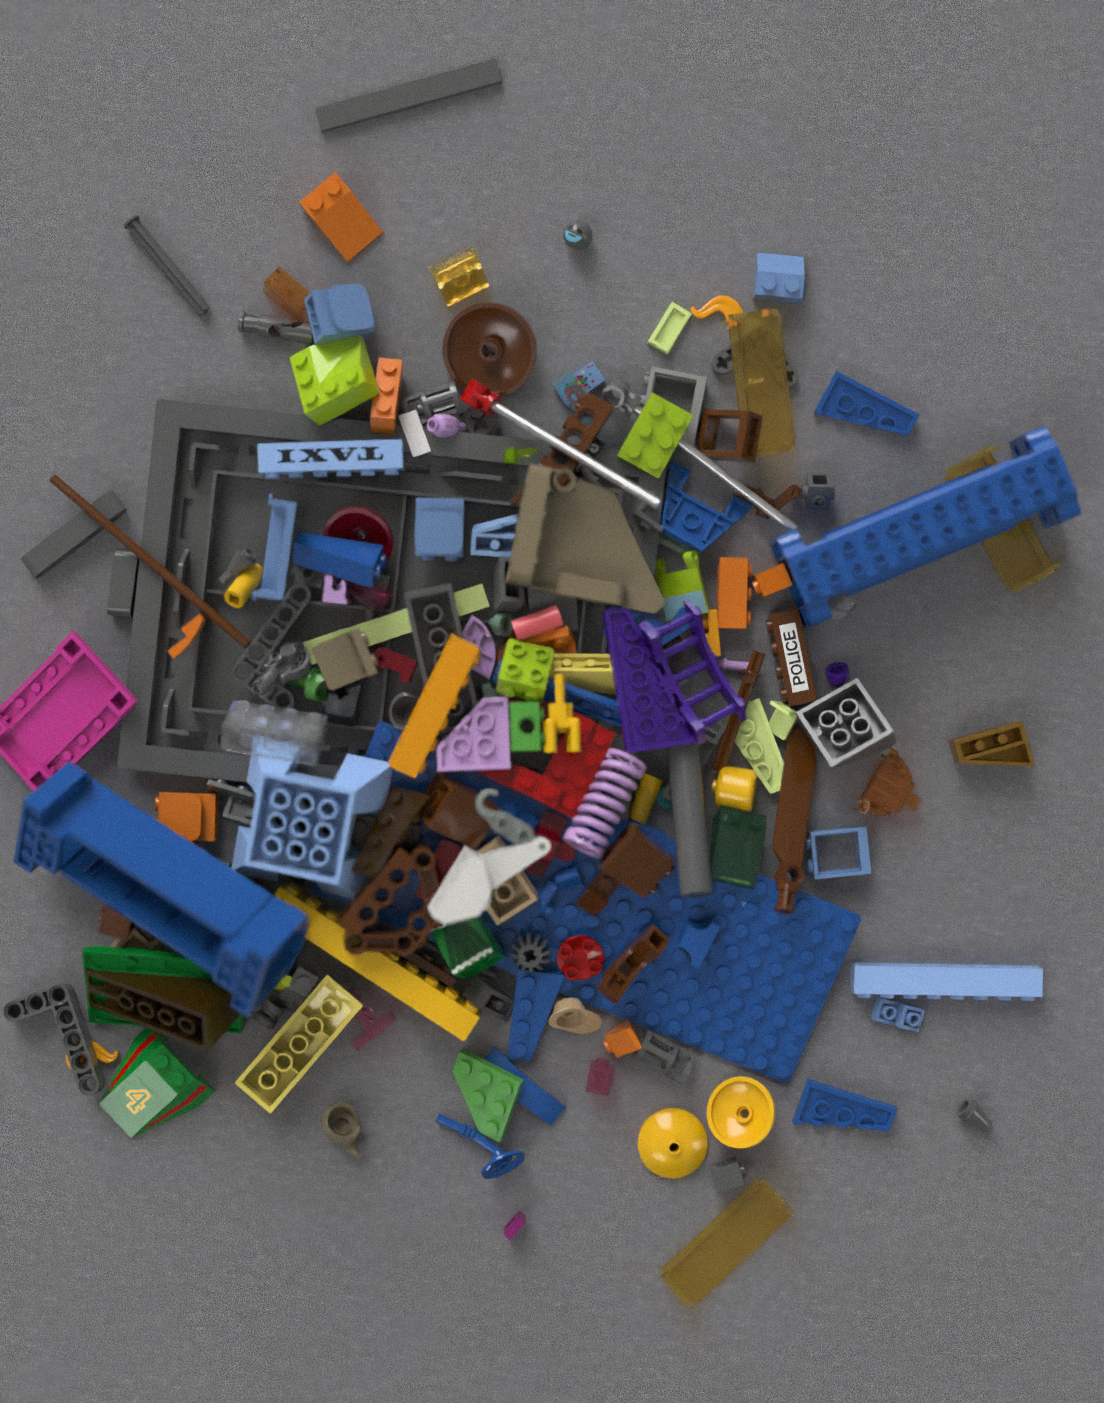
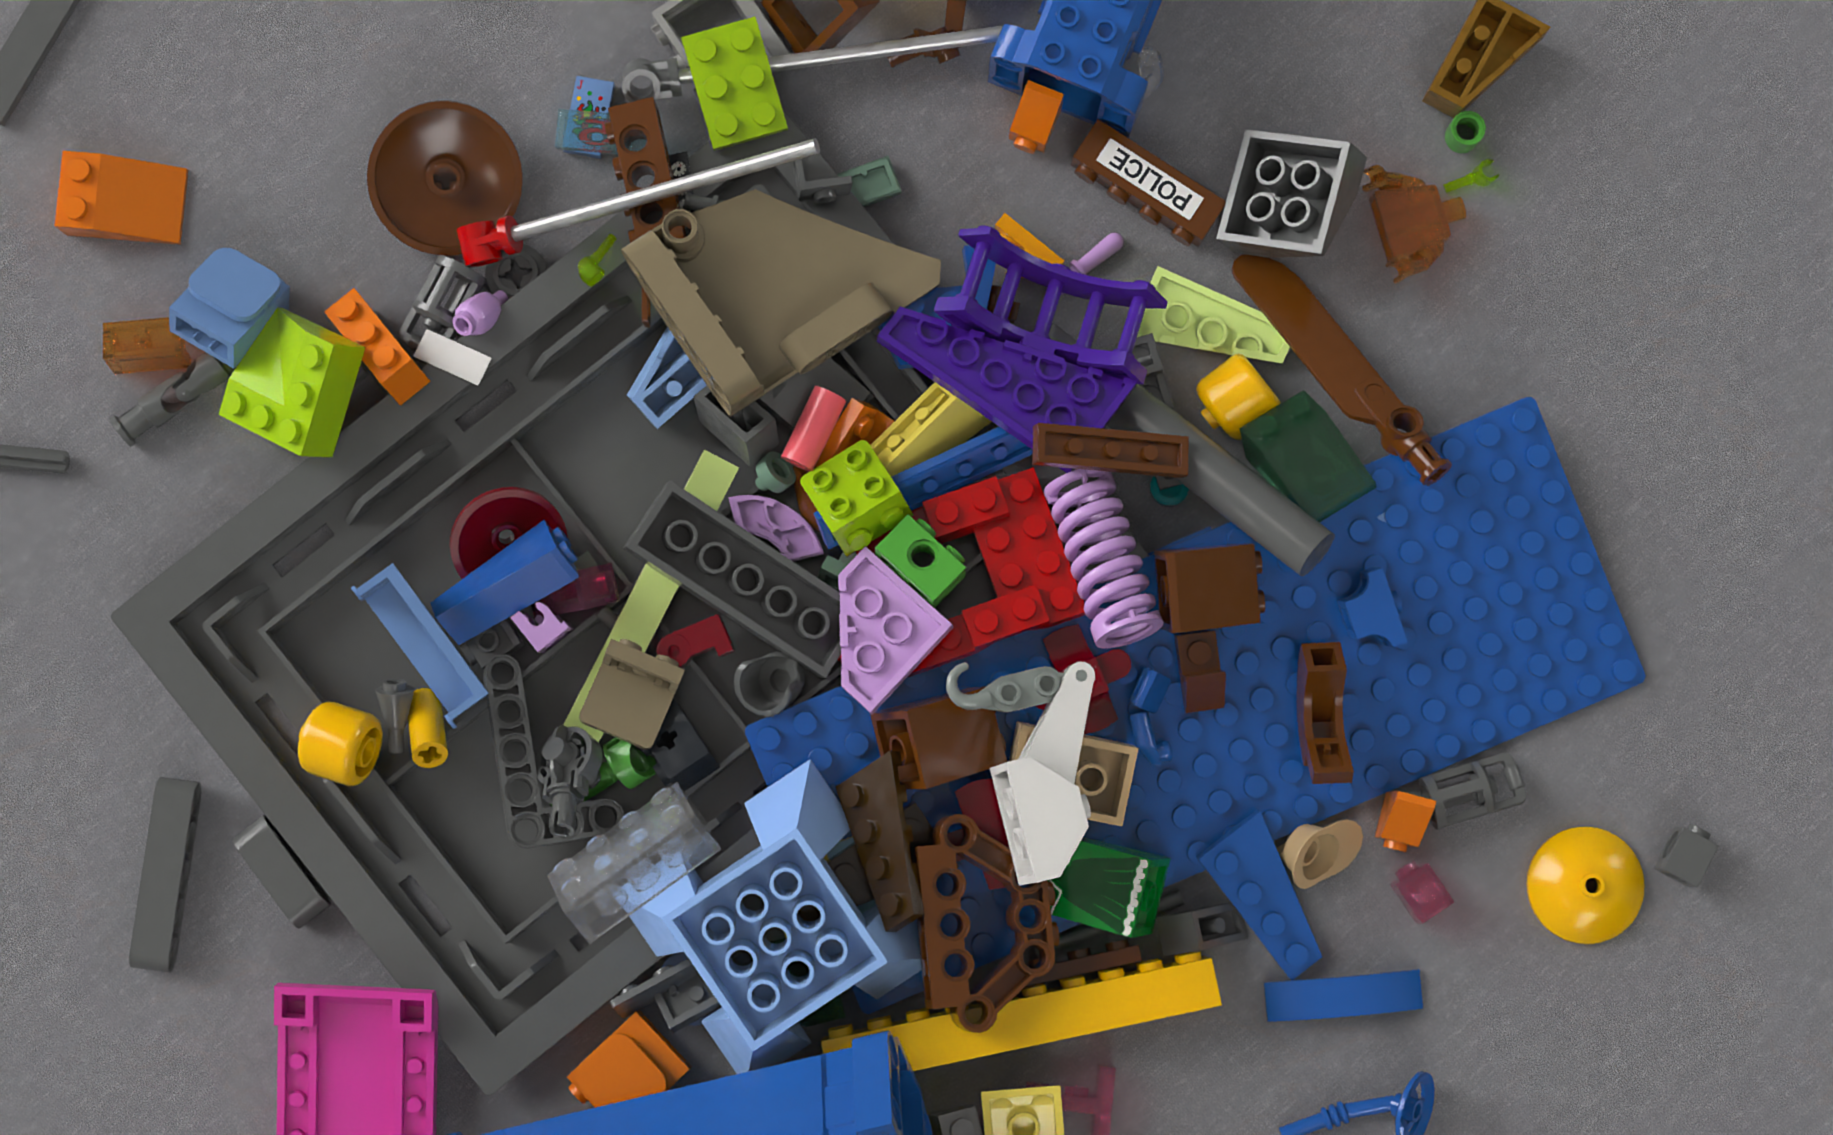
camera: 50 degrees left, 5 degrees down
(150, 561) = (287, 812): reddish brown piece -> none
(191, 631) = (417, 841): orange slope -> none
(200, 555) = (340, 743): none -> yellow head
(331, 457) = (382, 478): light blue brick -> none
(433, 706) = (790, 642): light orange brick -> none
(439, 528) = (591, 434): medium blue brick -> none
(459, 276) = (325, 129): clear yellow bracket -> none
(488, 1093) = (1311, 1043): bright green plate -> none
(539, 951) = (1184, 836): dark grey gear -> none
(561, 721) = (956, 511): yellow plant -> none
(580, 957) = (1257, 771): red dish -> none
(644, 798) = (1143, 512): yellow piece -> none
(653, 761) = (1110, 450): none -> reddish brown plate
(681, 585) = (937, 225): lime flag -> none
(692, 520) = (875, 140): blue wing -> none
(726, 1242) = (1767, 937): clear yellow piece -> none
(727, 1108) = (1603, 772): yellow dish -> none
(733, 593) = (1005, 176): orange brick -> none
(749, 680) = (1127, 259): reddish brown axle -> none
(782, 719) = (1210, 264): yellowish green bracket -> none
(830, 1105) = (1726, 651): blue wing -> none
(837, 673) = (1219, 150): dark purple tile -> none
(862, 852) = (1453, 323): medium blue window -> none
(897, 1014) = (1688, 470): medium blue slope -> none
(937, 796) = (1477, 176): none -> clear neon green hand
(946, 979) = (1703, 374): light blue brick -> none
(960, 773) = (1473, 121): none -> bright green beam

